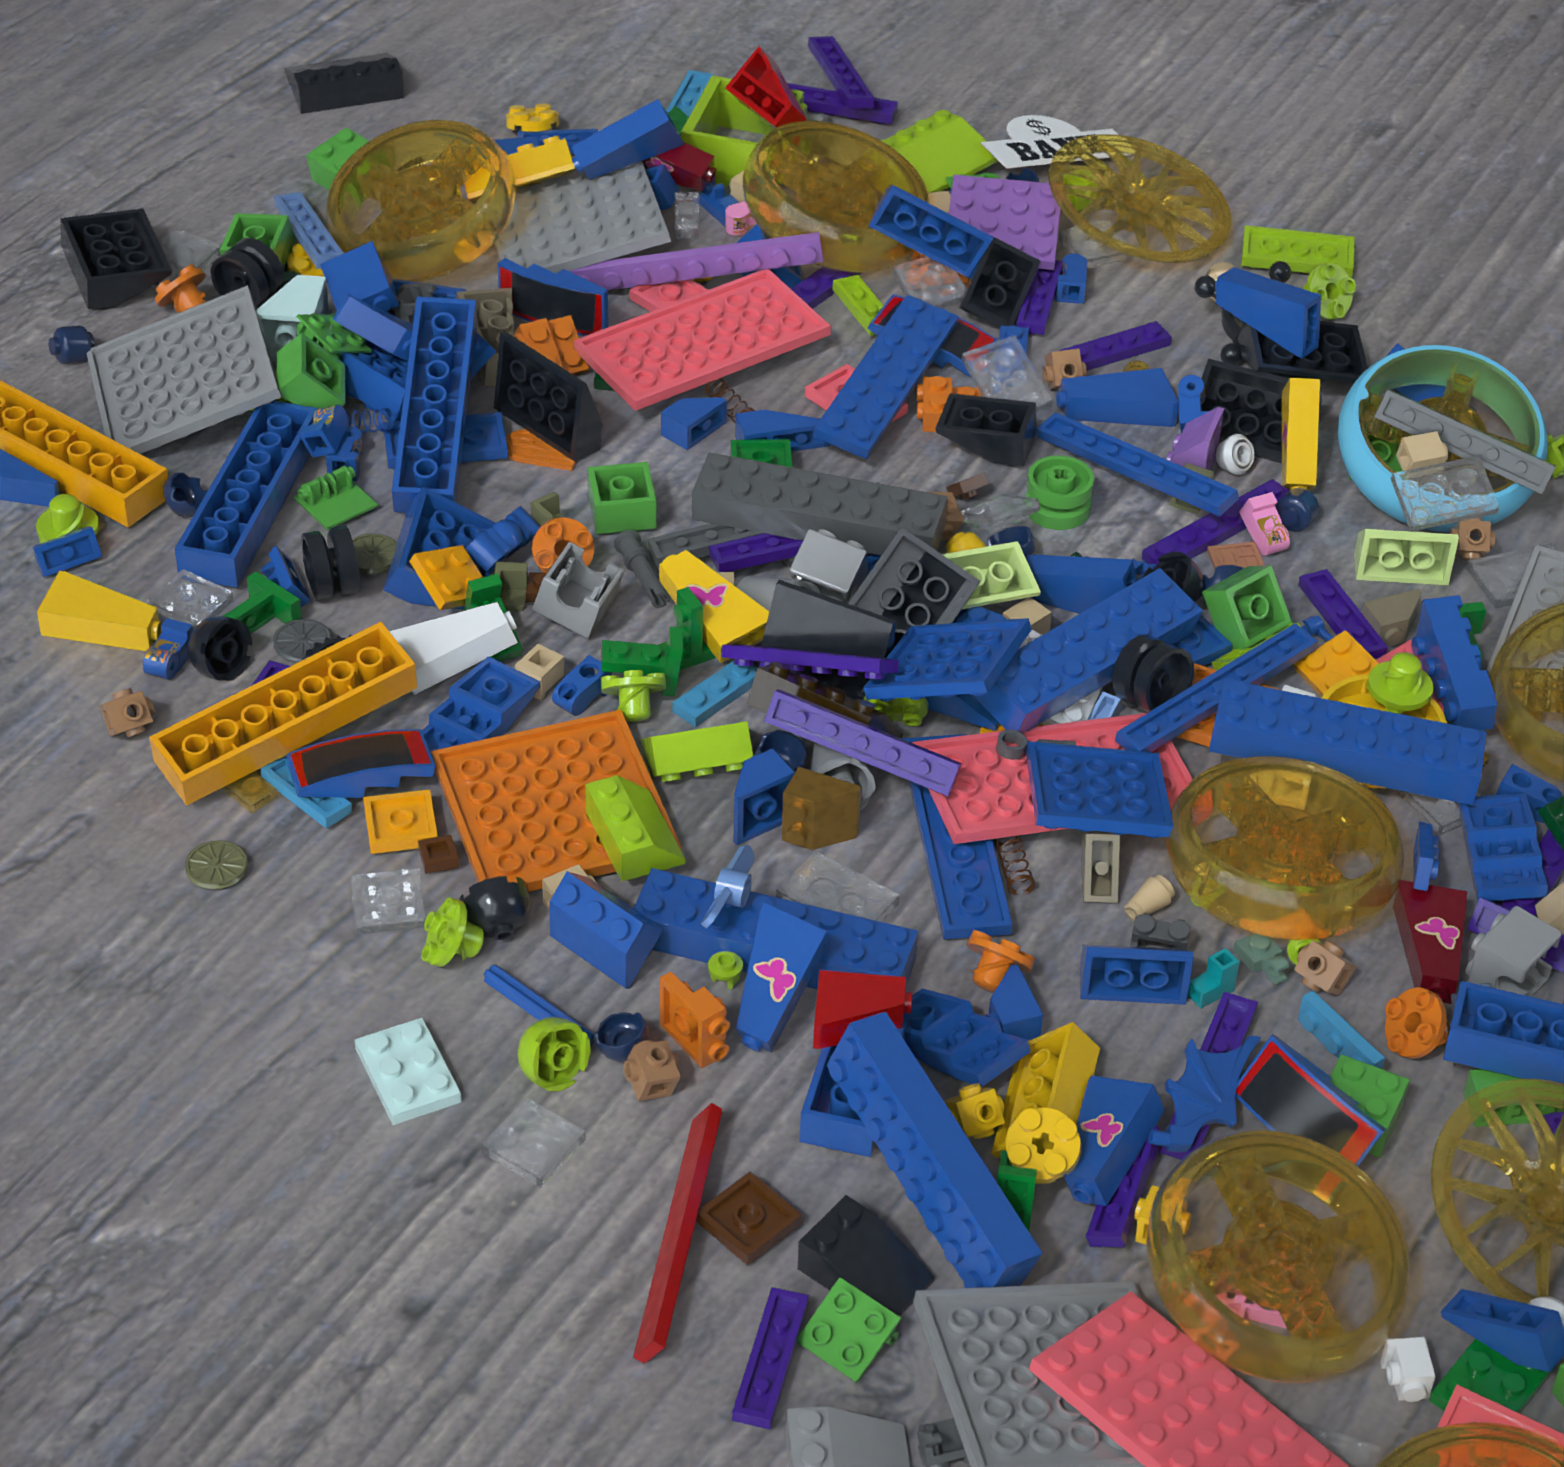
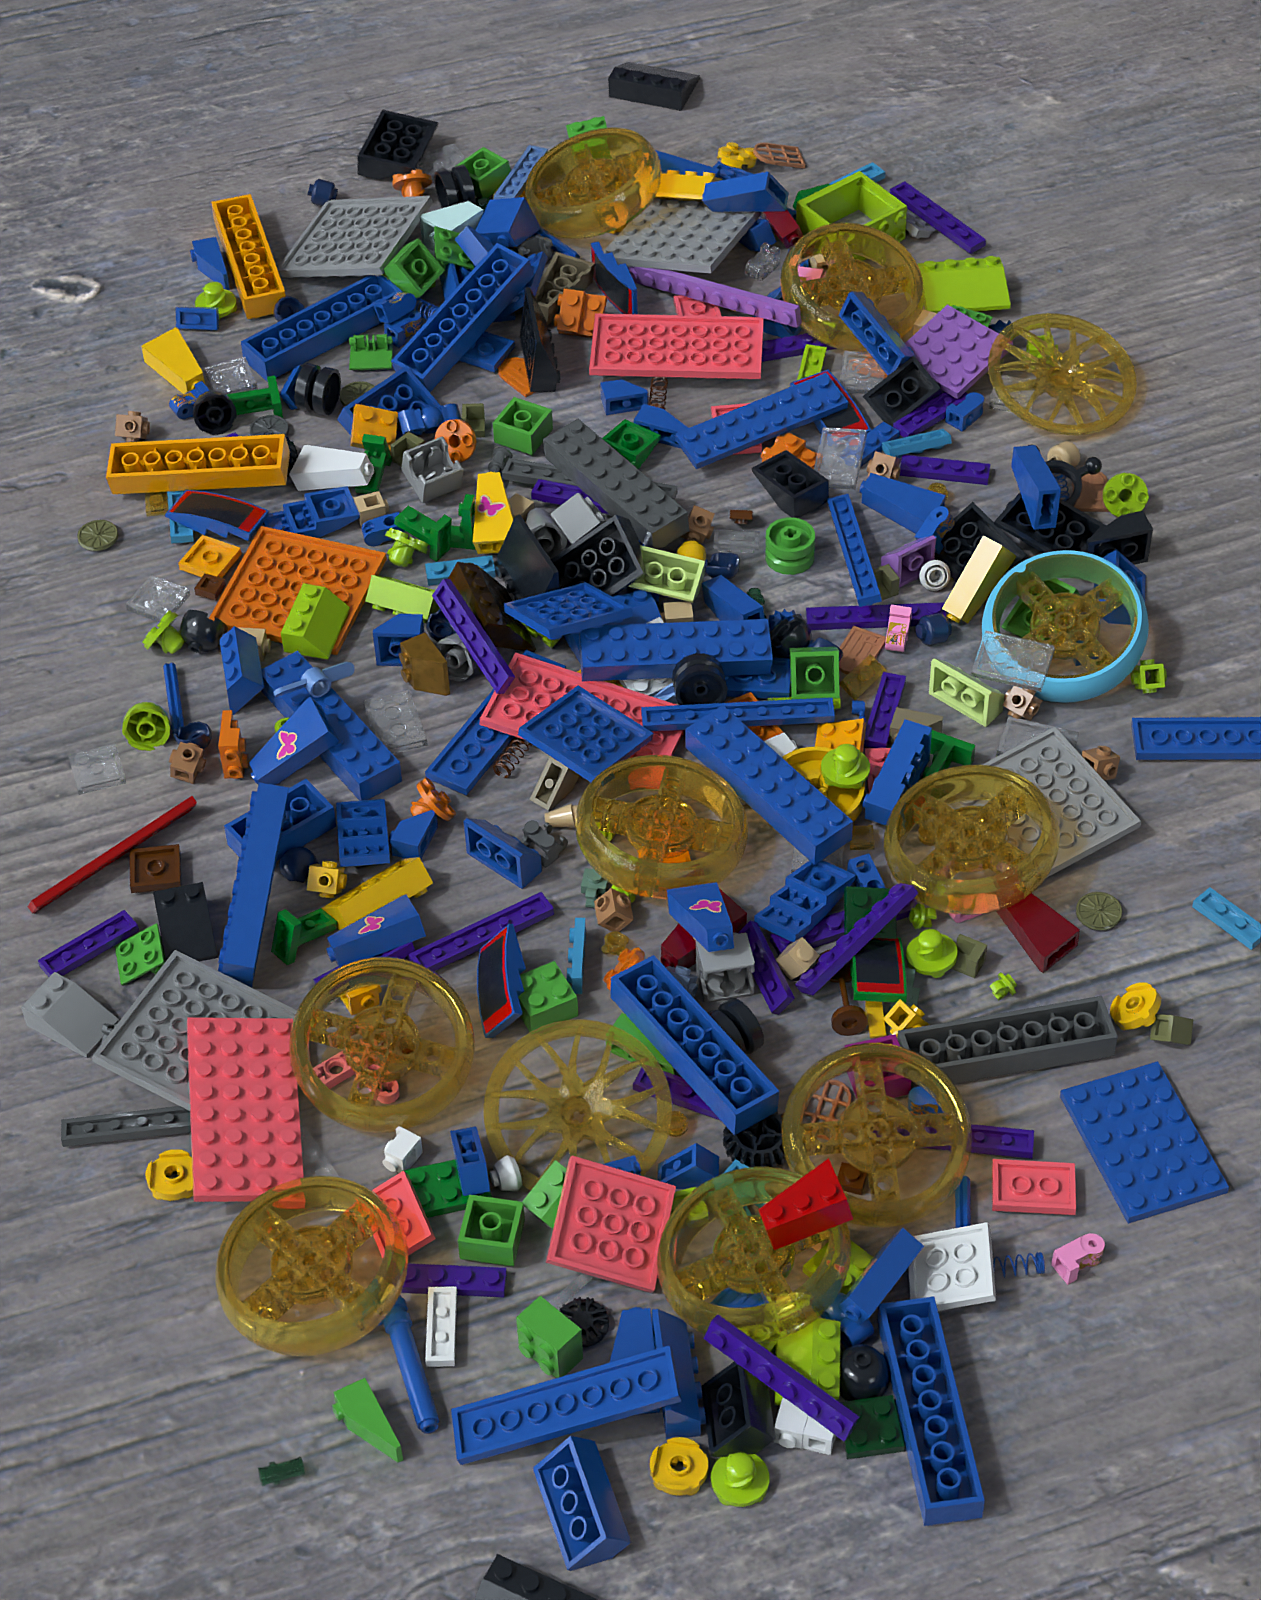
camera: 40 degrees right, 5 degrees up
(407, 1071) = (76, 697): light aqua plate -> none
(575, 107) = (763, 157): none -> nougat window
(765, 91) = (864, 195): red wedge -> none
(821, 662) = (501, 573): dark purple plate -> none
(841, 73) = (966, 203): dark purple plate -> none
(855, 996) = (308, 782): red slope -> none
(1017, 737) = (578, 679): dark grey piece -> none
(1037, 140) = (1058, 300): white sticker -> none
(1040, 1123) = (313, 912): yellow plate -> none
(1061, 331) = (917, 443): none -> dark azure plate
(1203, 1094) = (456, 940): blue animal -> none
(1218, 978) = (547, 883): teal piece -> none
(1290, 589) = (862, 677): none -> clear yellow plate
(1297, 248) = (1145, 459): lime plate -> none
(1358, 1005) = (614, 943): none -> clear yellow plate
(1389, 324) = (1128, 534): none -> black slope
(1421, 451) = (1019, 625): tan brick -> none
(1425, 856) = (745, 876): blue plate -> none
(1458, 911) = (702, 915): none -> blue slope
(1466, 441) = (1057, 632): plate -> none

